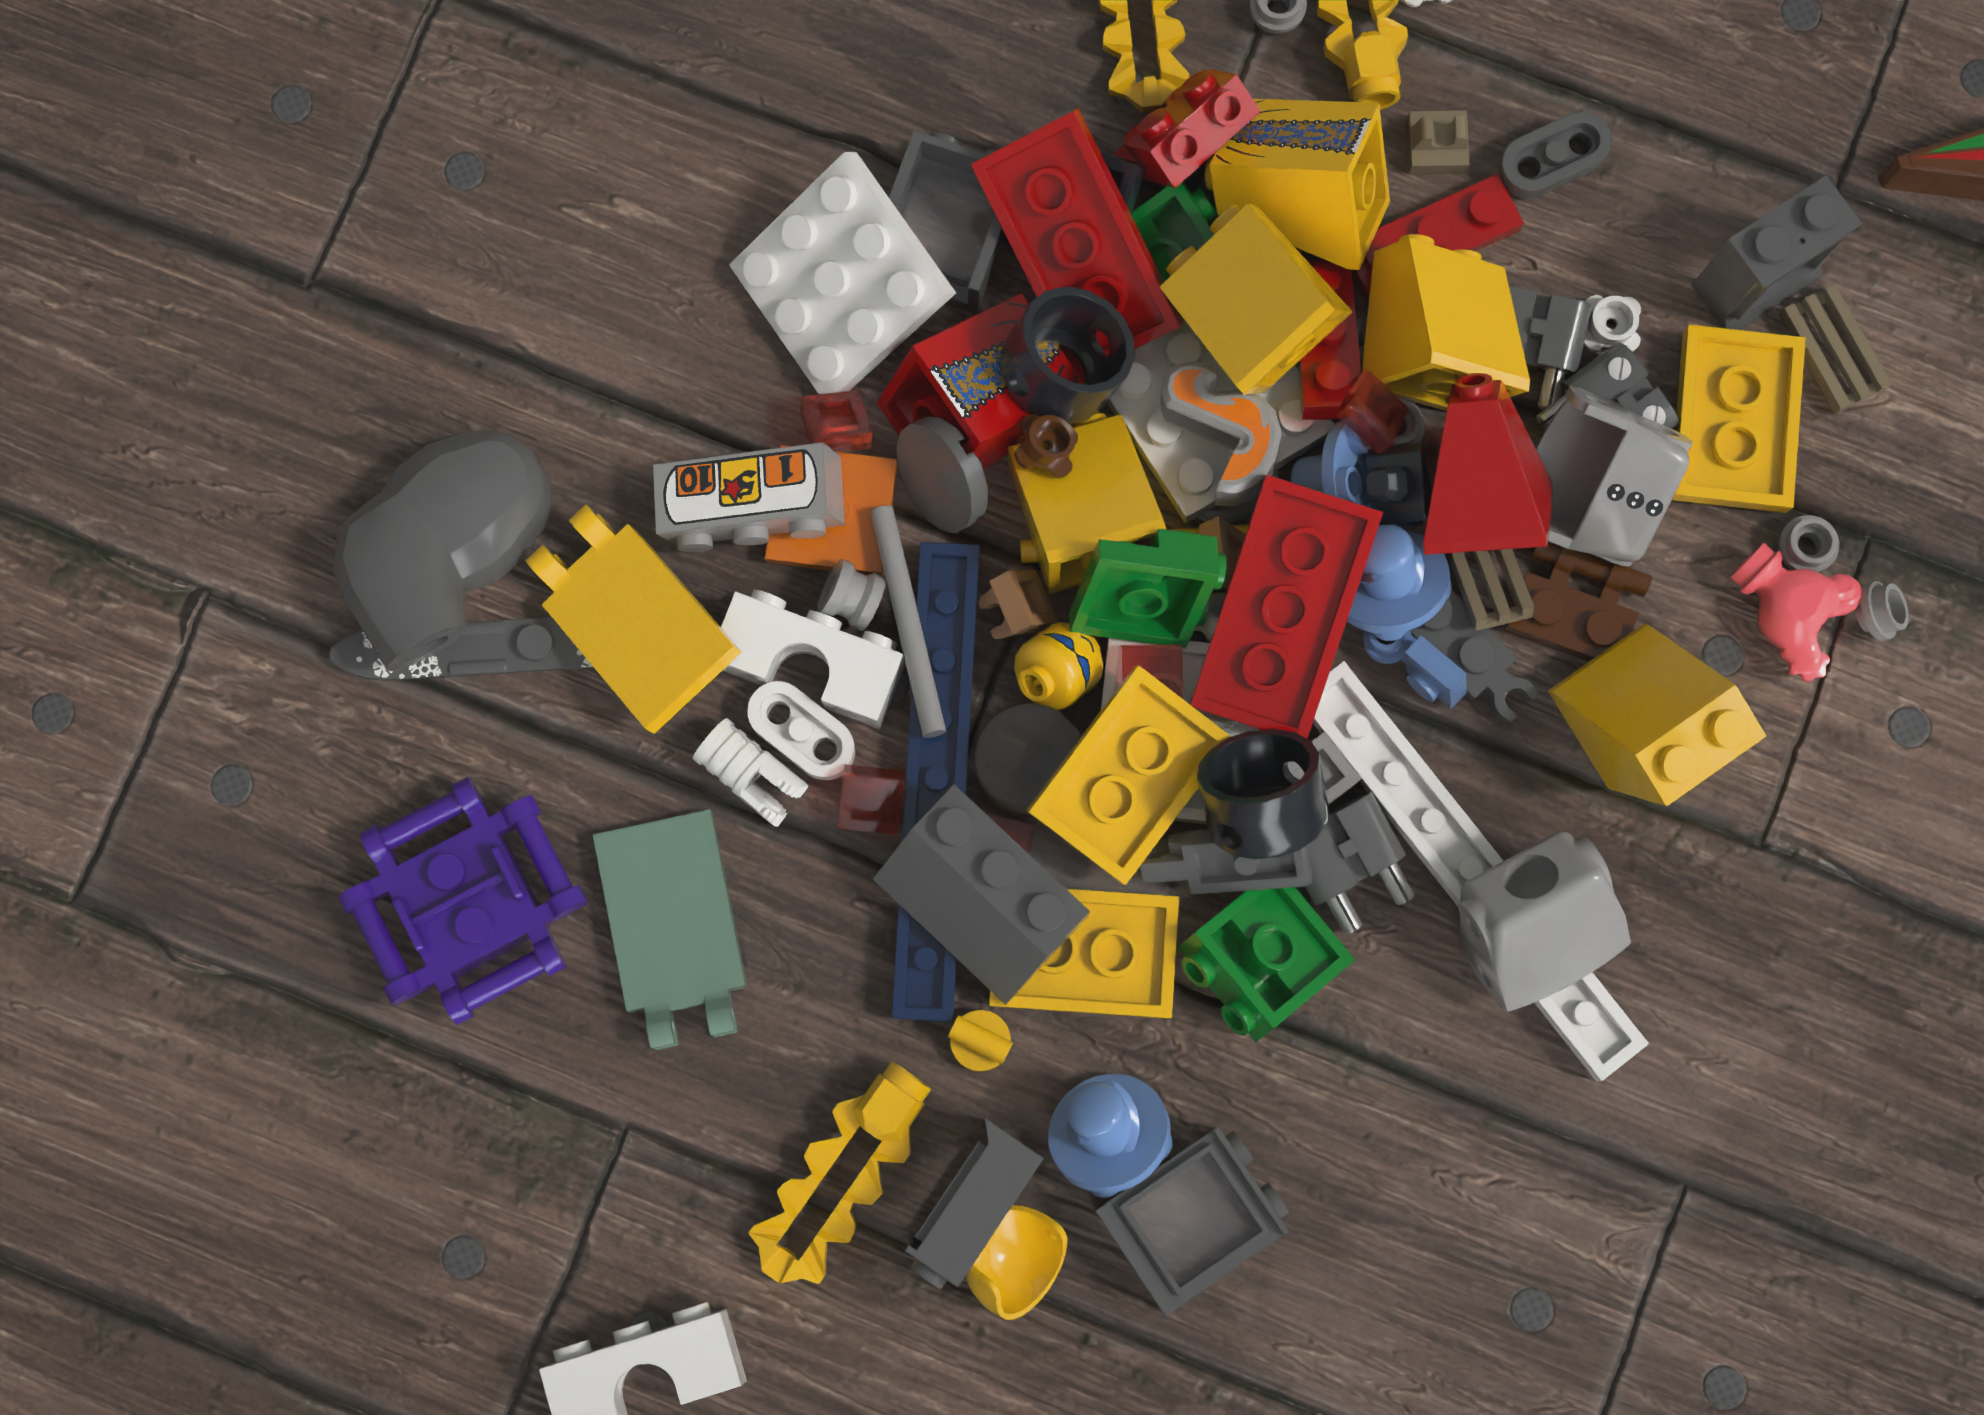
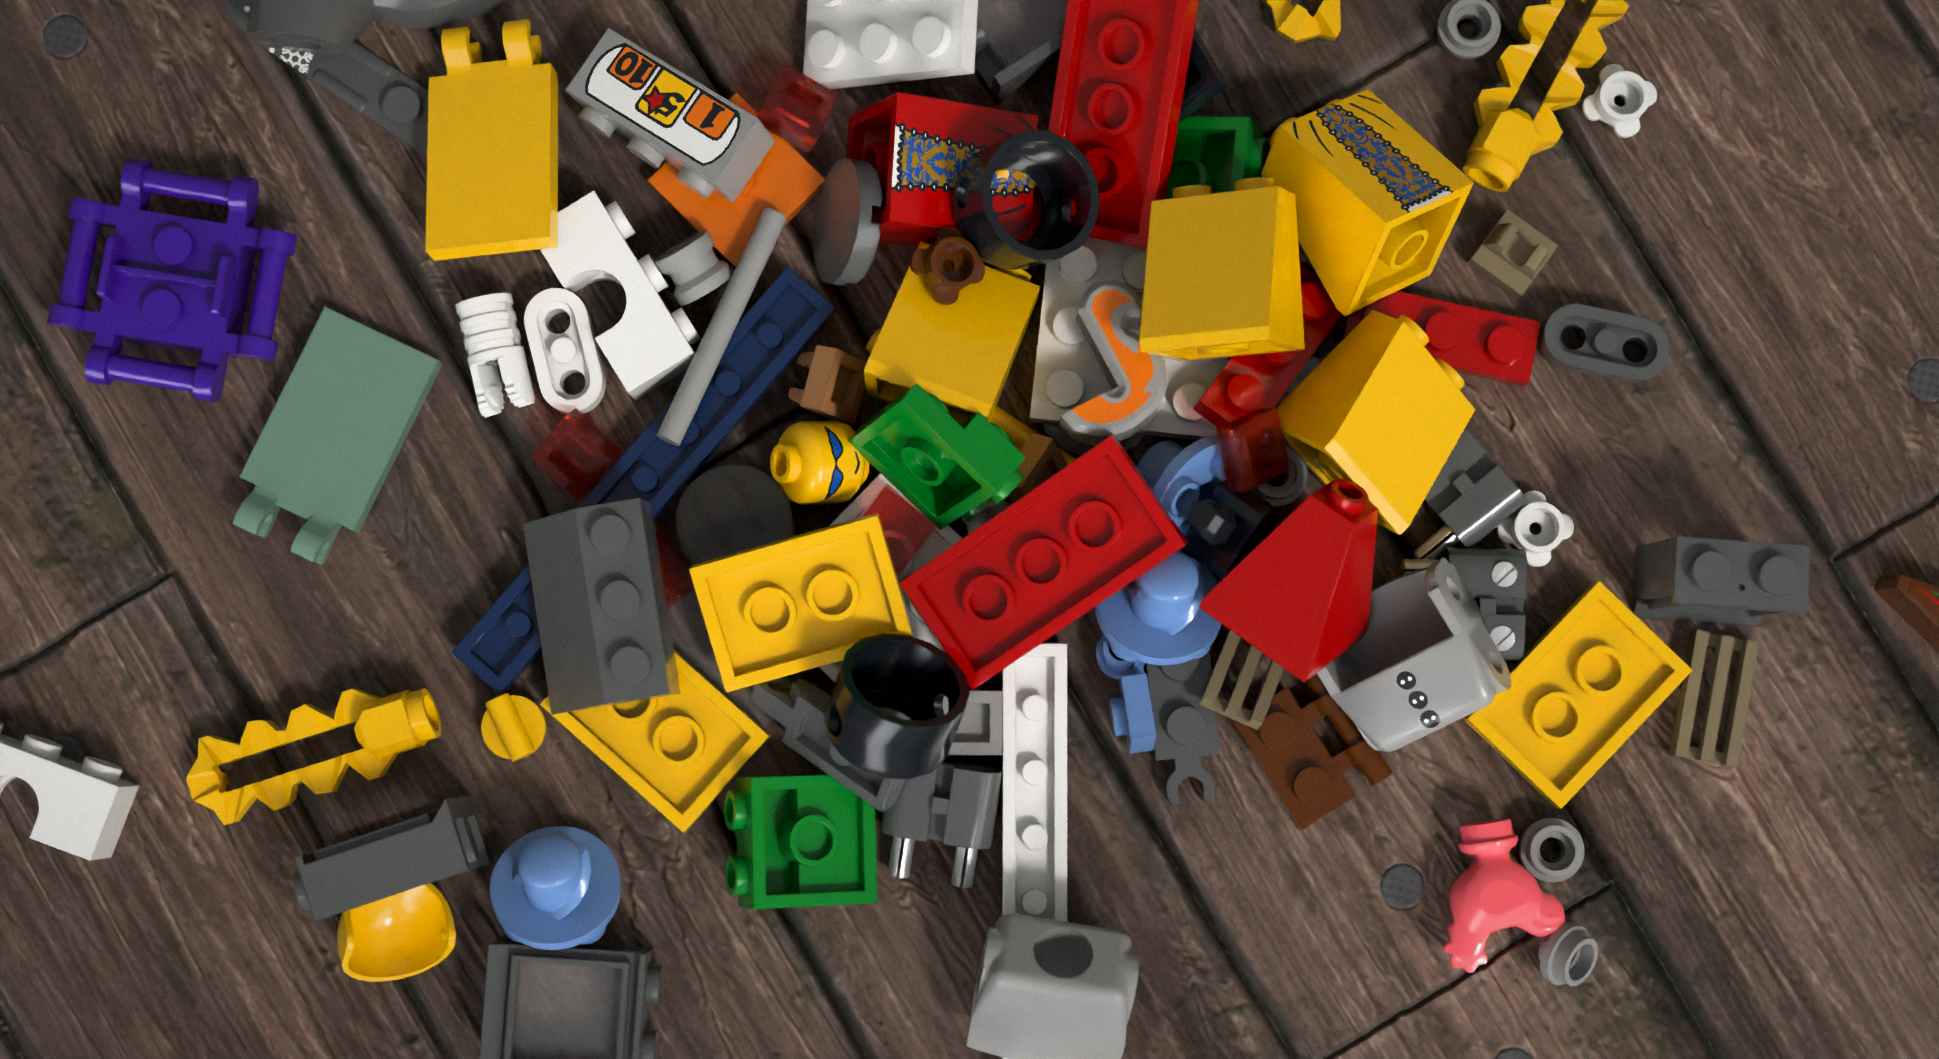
camera: 35 degrees right, 5 degrees up
(1190, 128) = (1293, 81): red plate -> none
(1655, 717) = (1288, 897): yellow slope -> none

